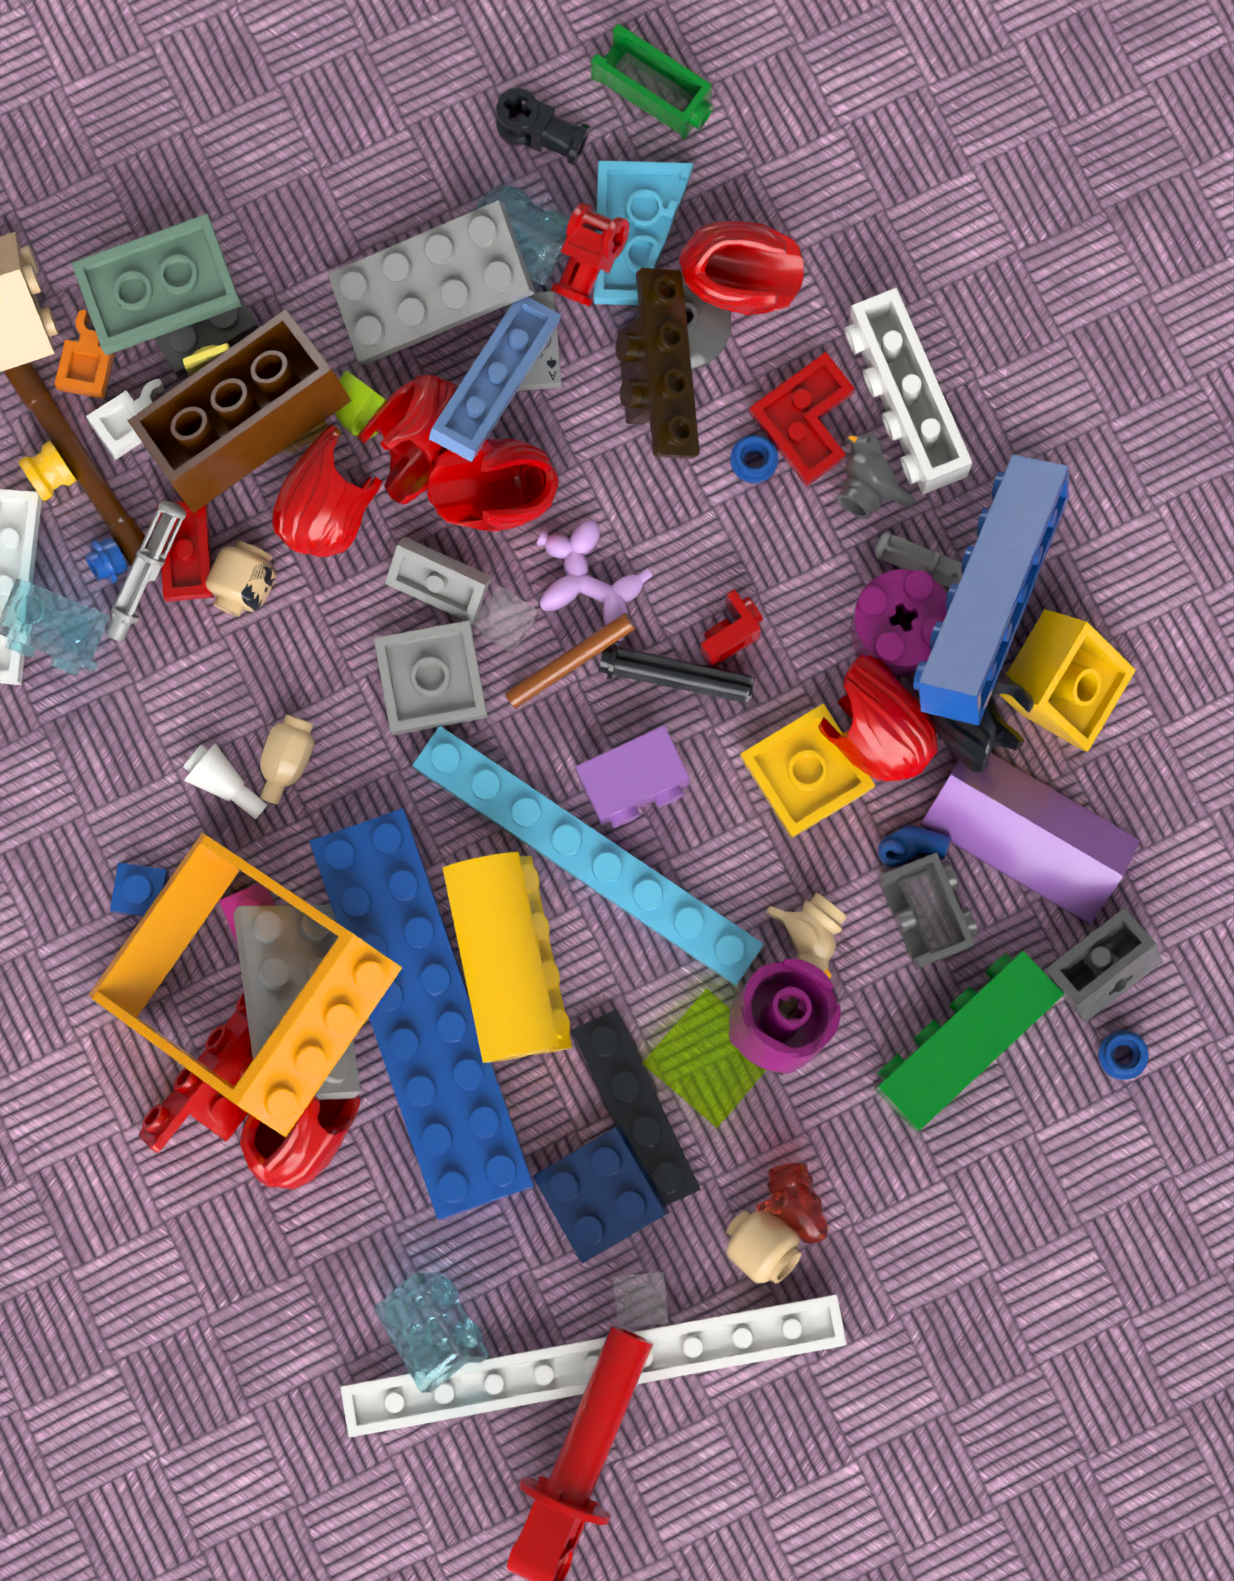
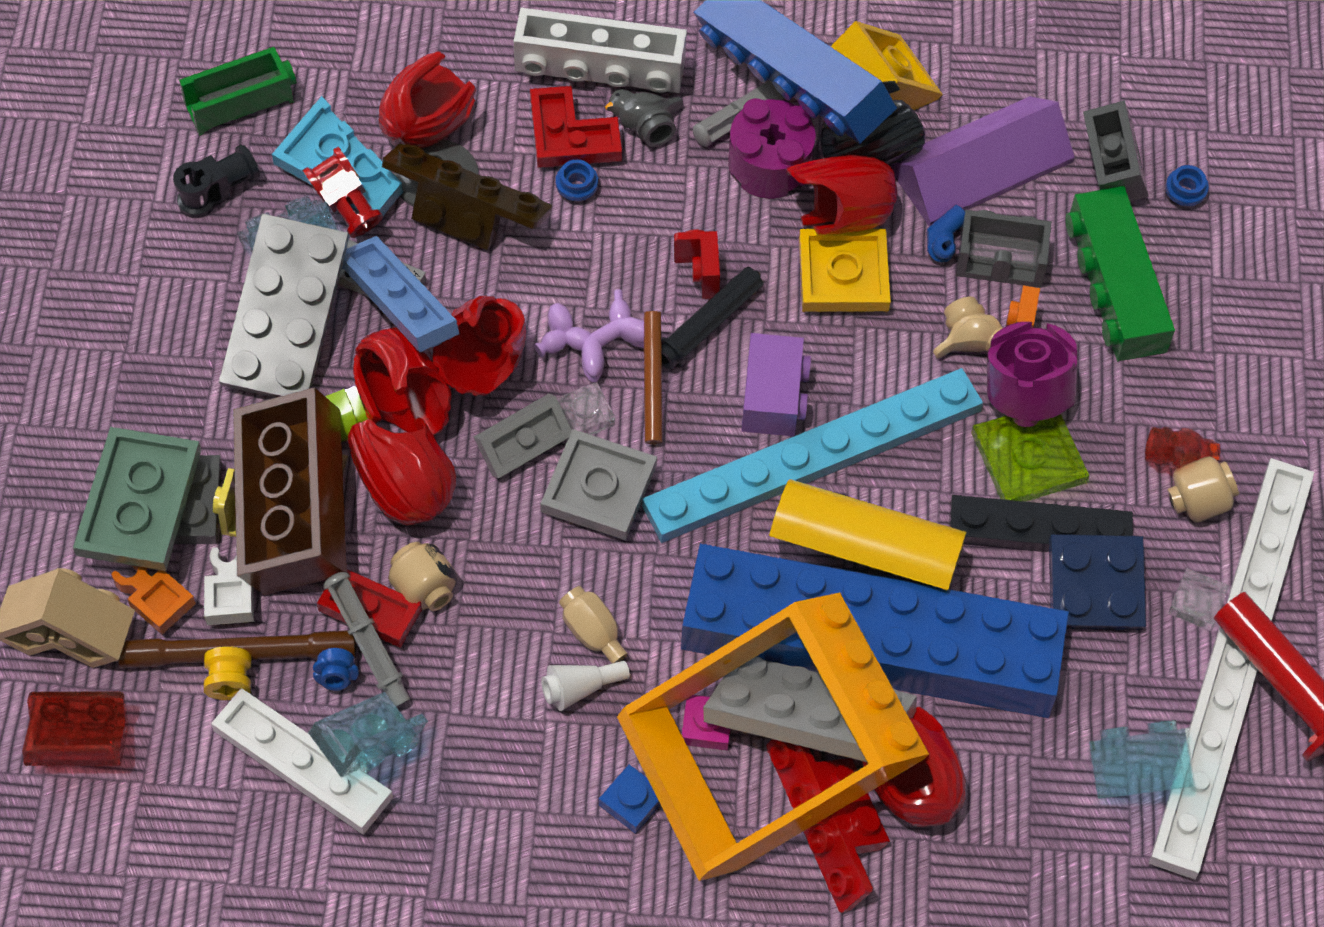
camera: 65 degrees left, 20 degrees down
(858, 971) = (1026, 308): none -> orange plate

